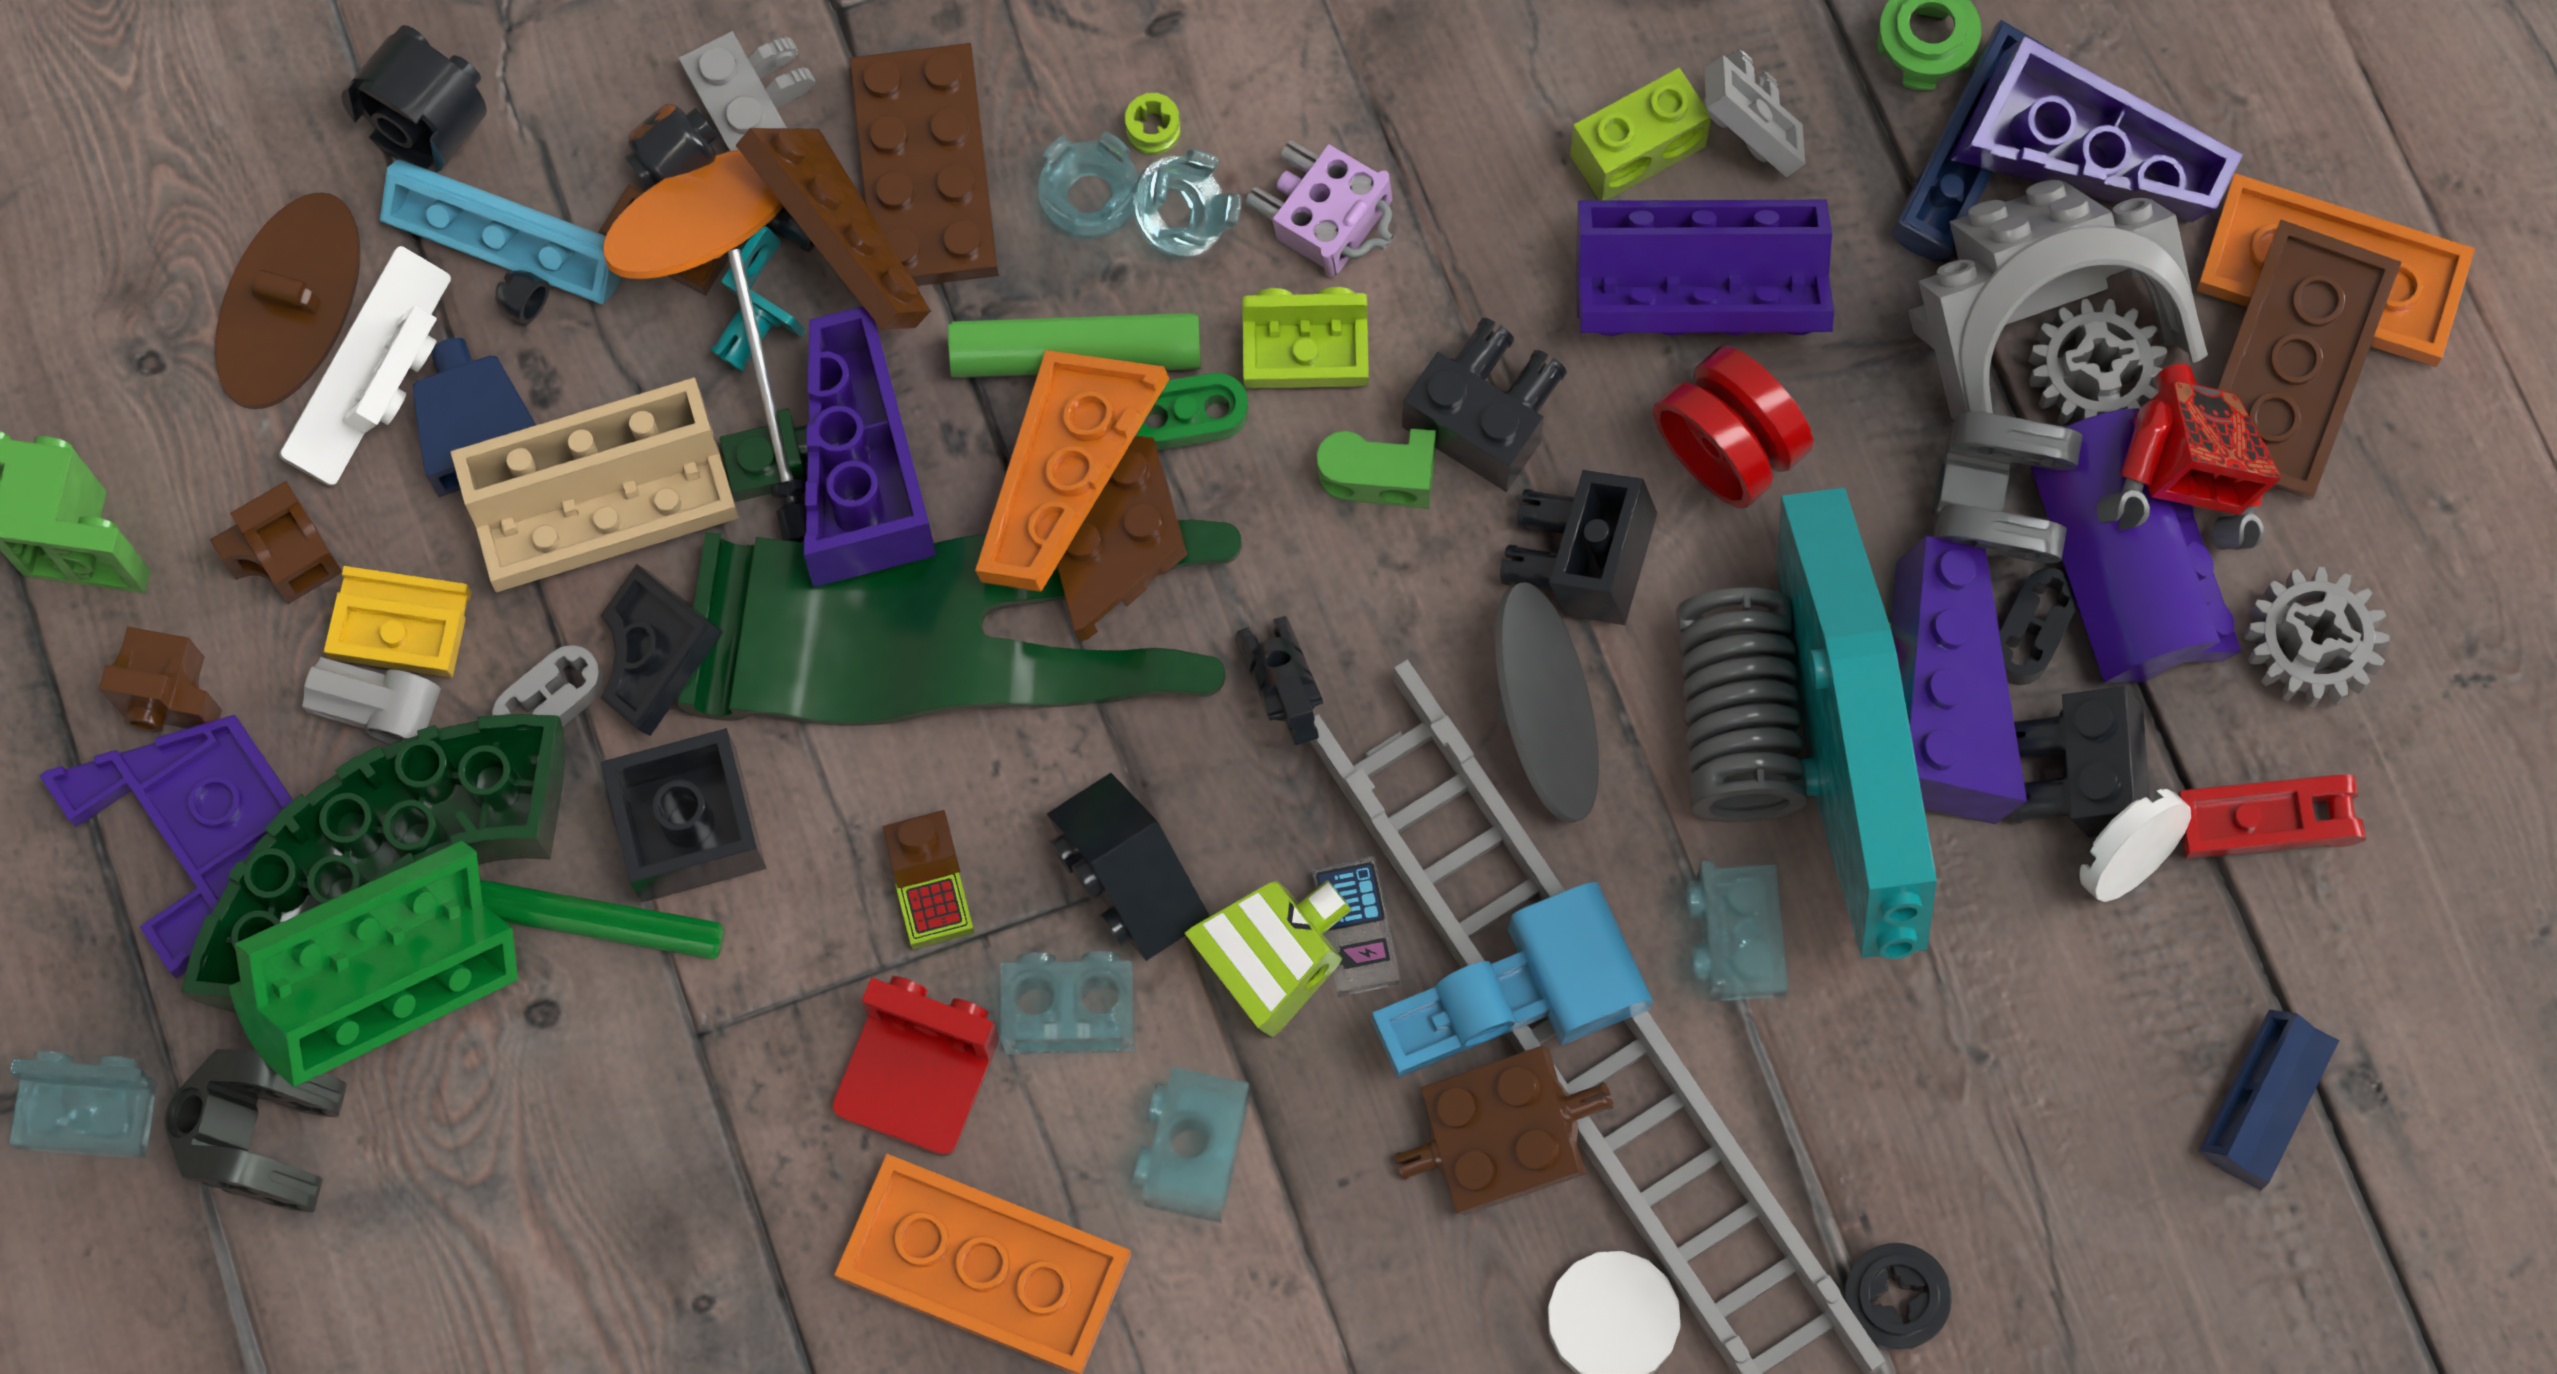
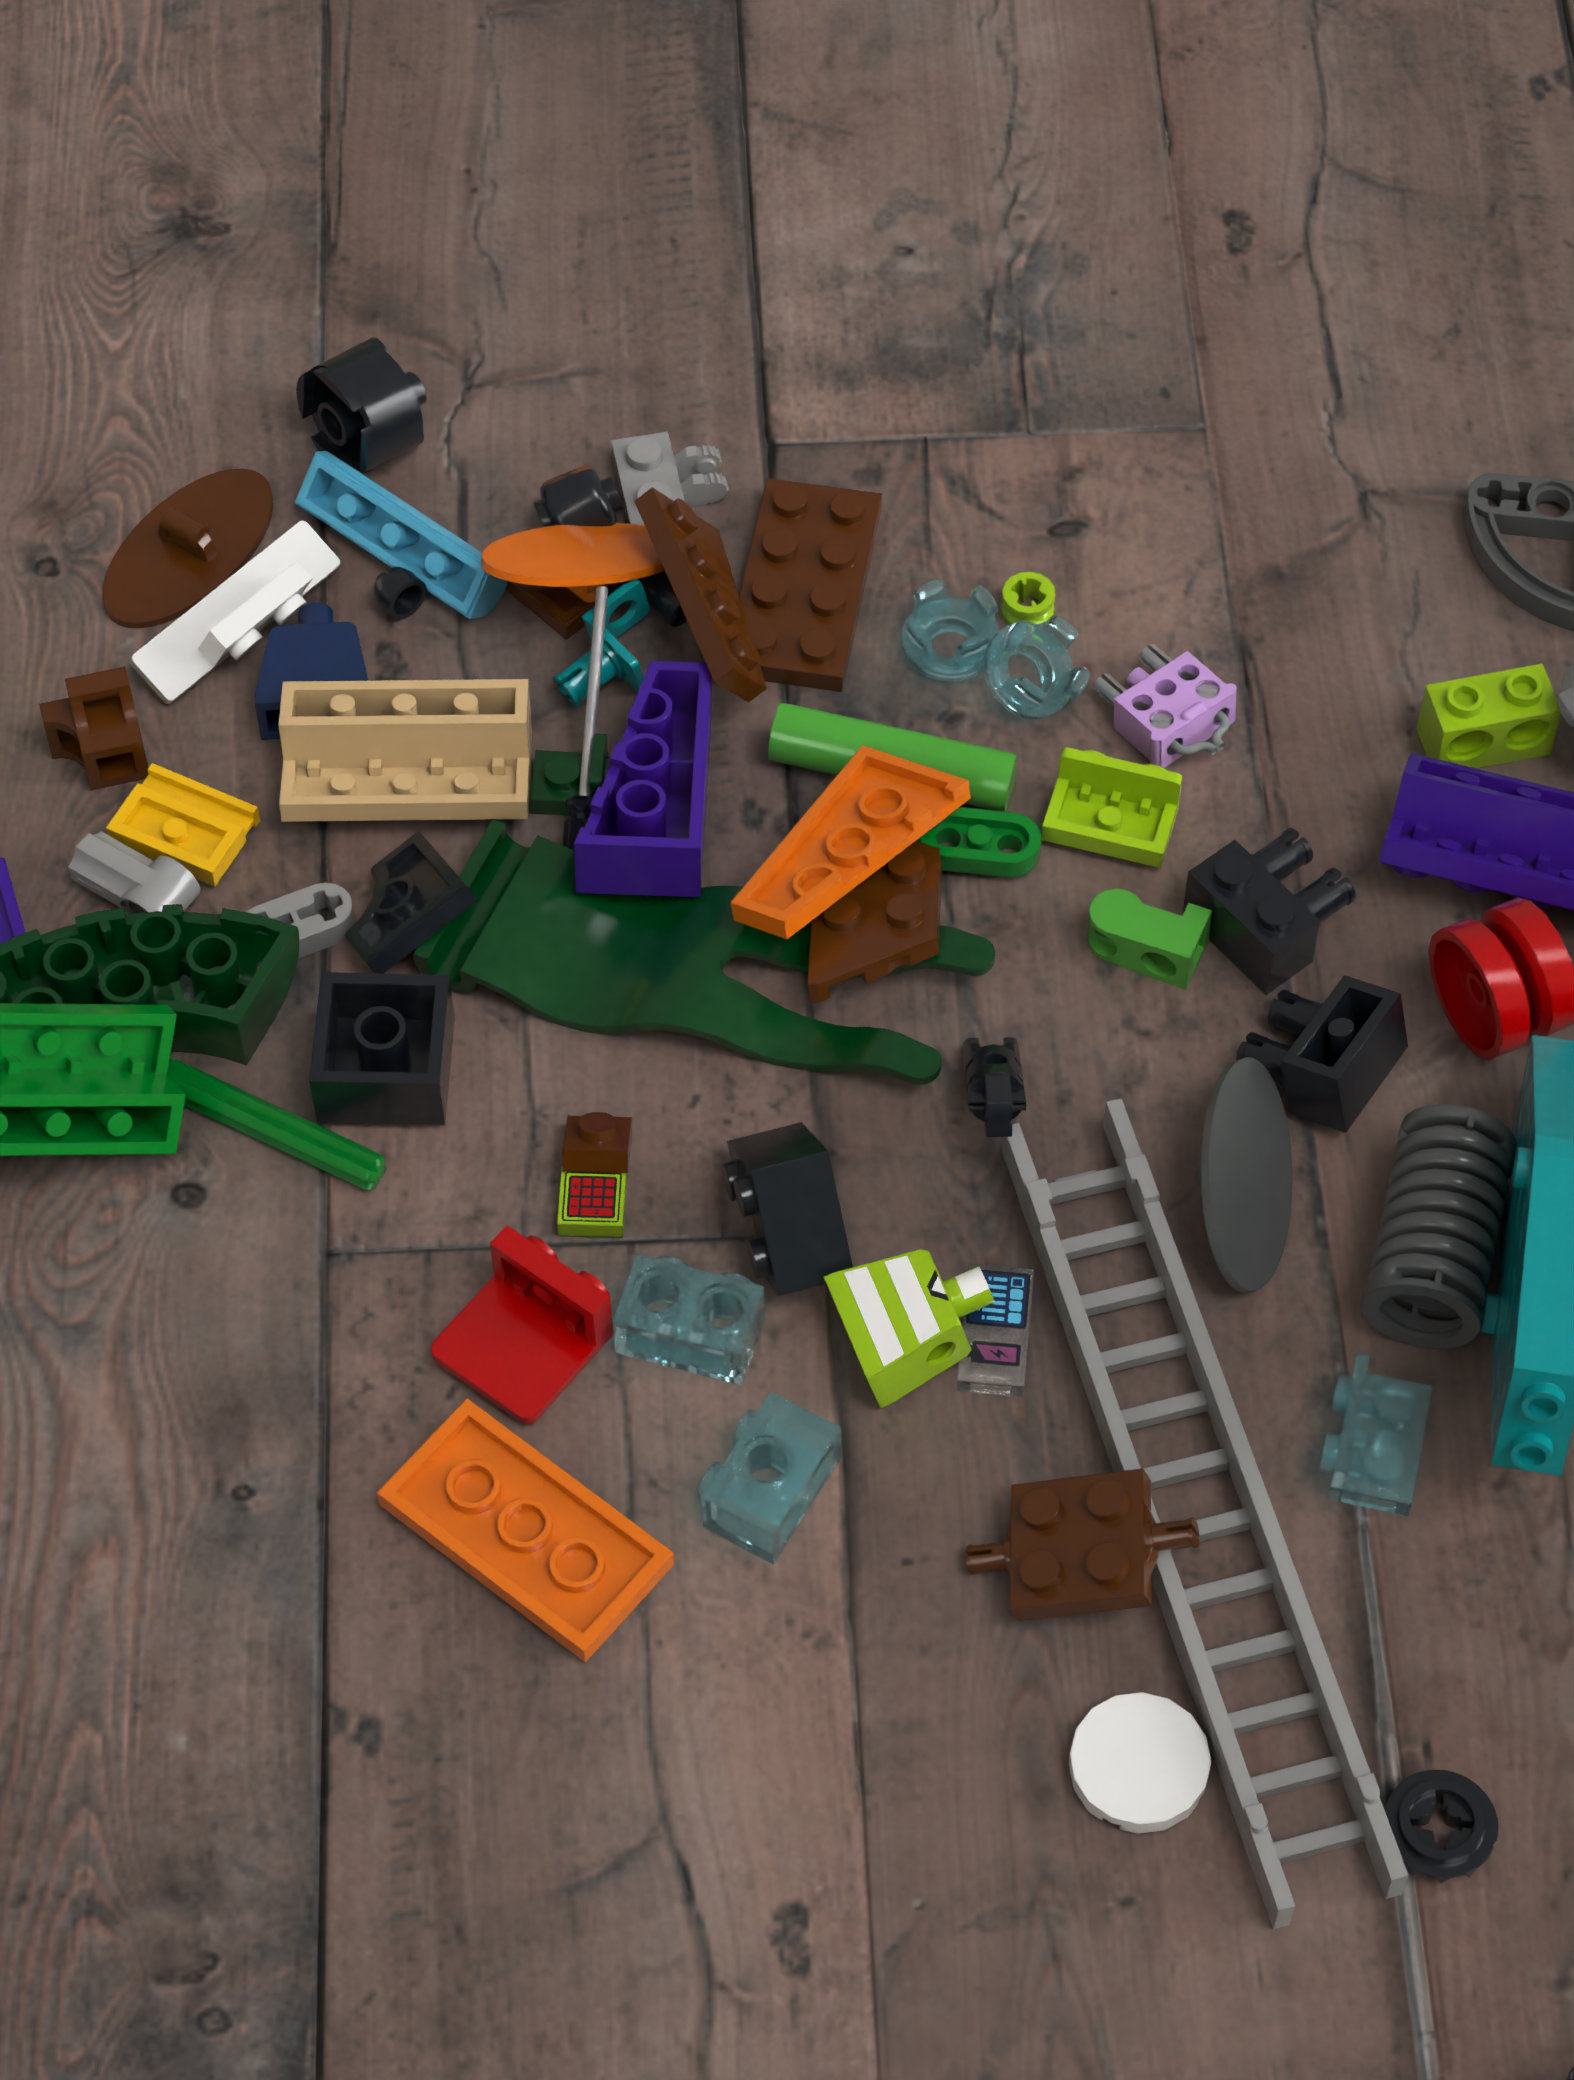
camera: 15 degrees right, 15 degrees down
(1566, 969) = (1191, 1408): dark azure plate -> none

